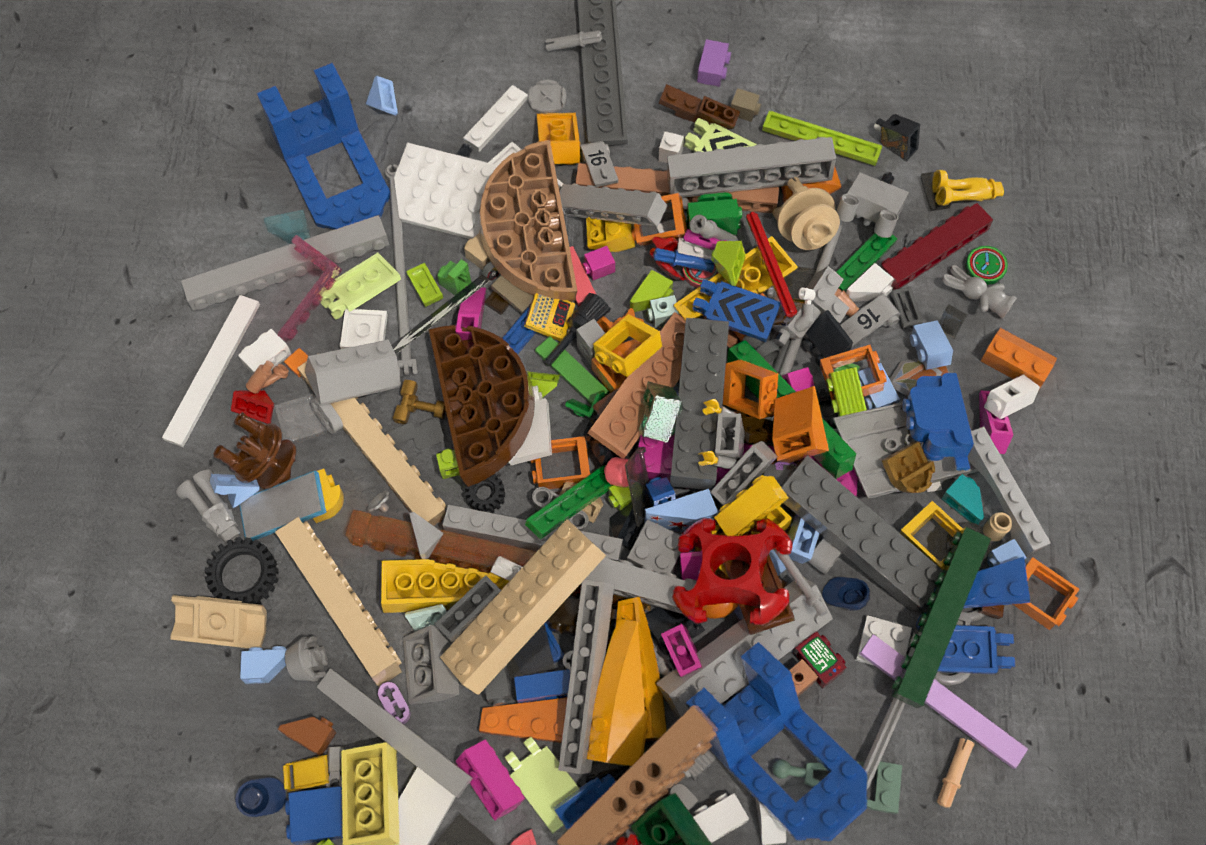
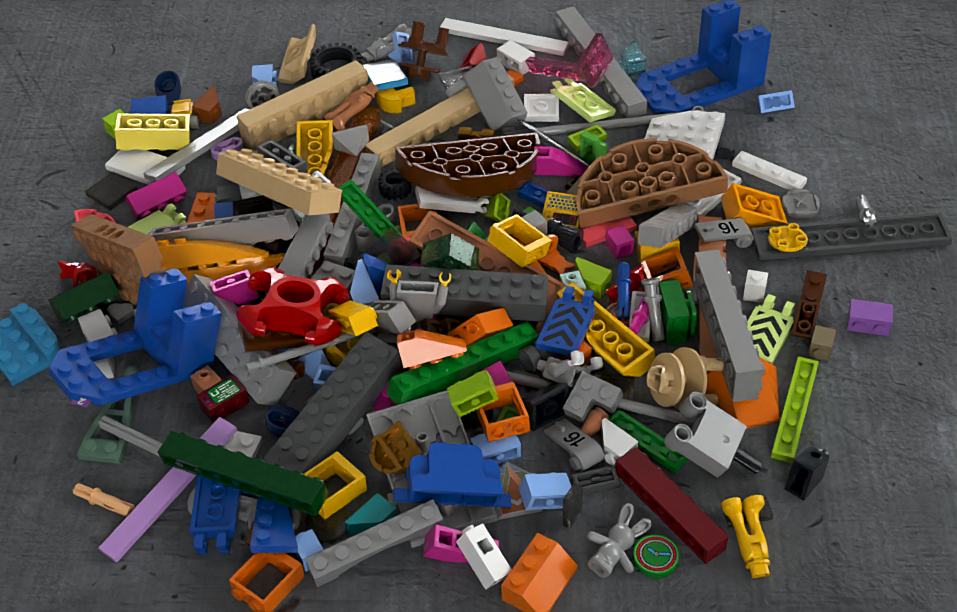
camera: 90 degrees right, 20 degrees down
(263, 376) = (492, 53): nougat plant -> none
(346, 531) = (353, 105): none -> nougat piece
(612, 110) = (787, 238): none -> yellow dish
(729, 259) = (615, 310): lime slope -> none
(771, 264) = (619, 342): red axle -> none
(997, 526) = (337, 533): tan brick -> none

